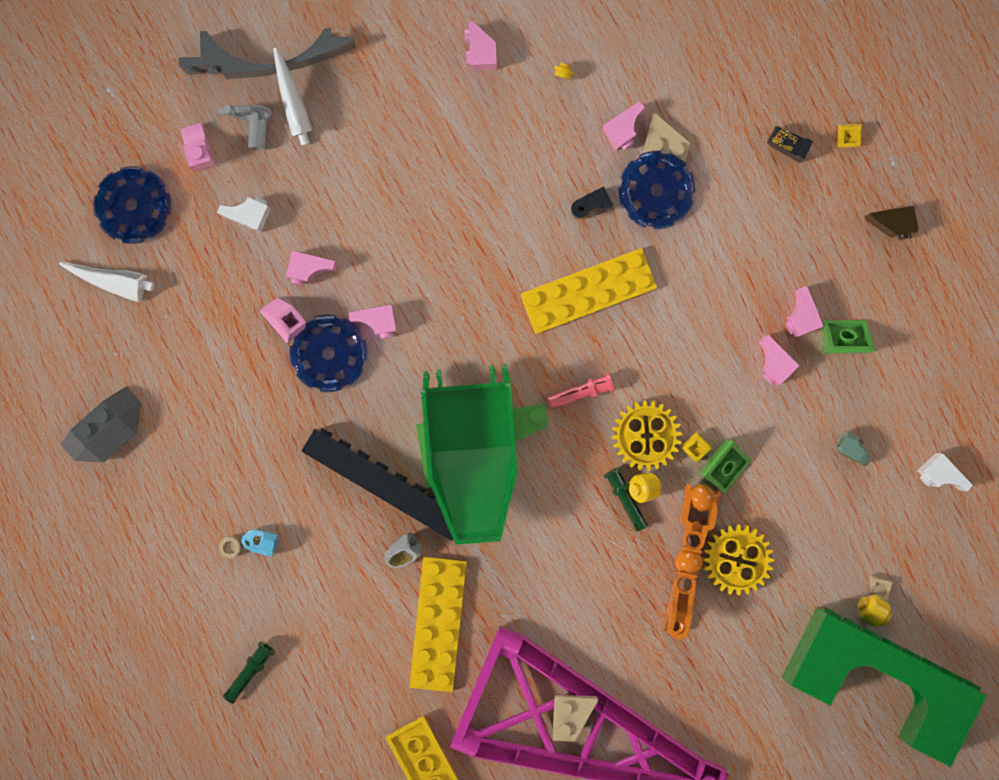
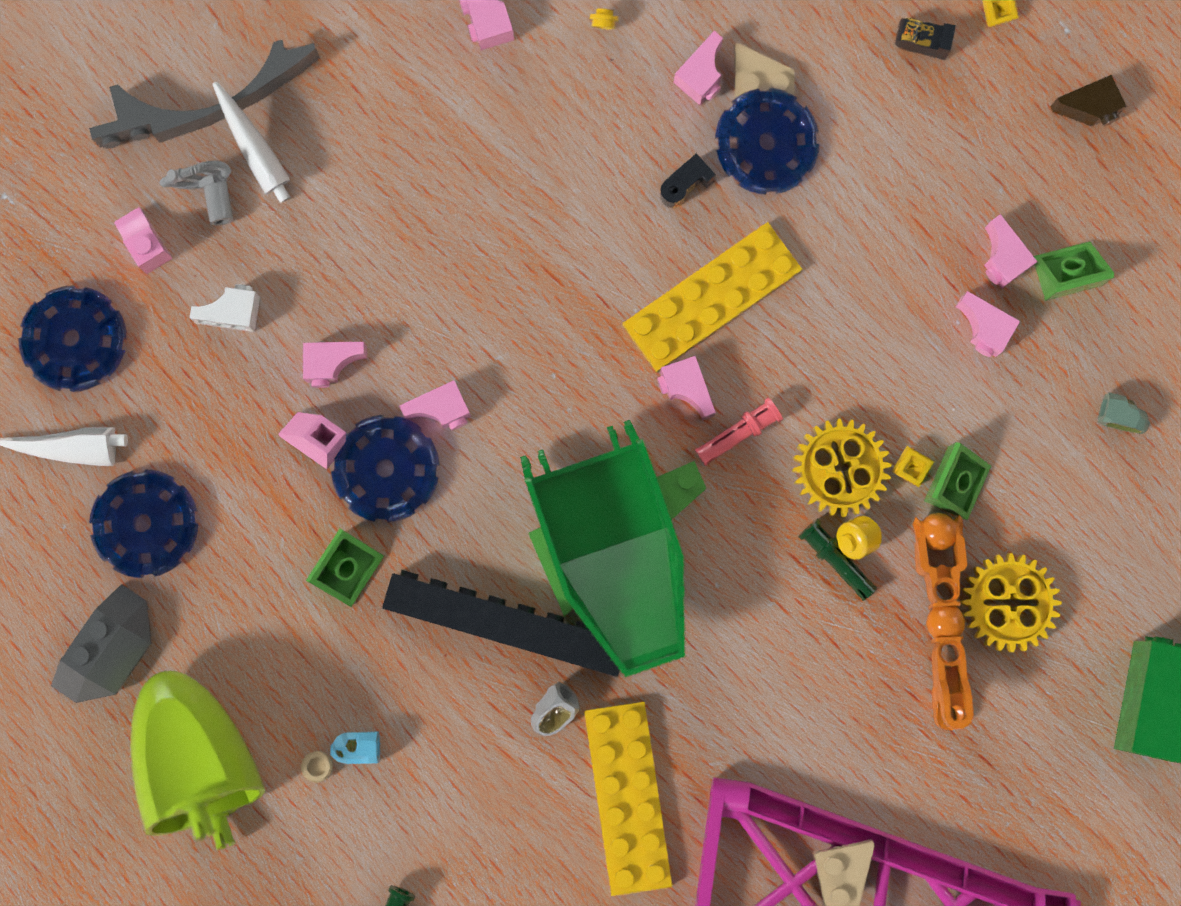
camera: 15 degrees left, 5 degrees down
(142, 522) = (189, 760): none -> lime windscreen
(164, 348) = (161, 528): none -> clear blue plate
(283, 415) = (345, 567): none -> bright green slope
(553, 347) = (685, 382): none -> bright pink arch

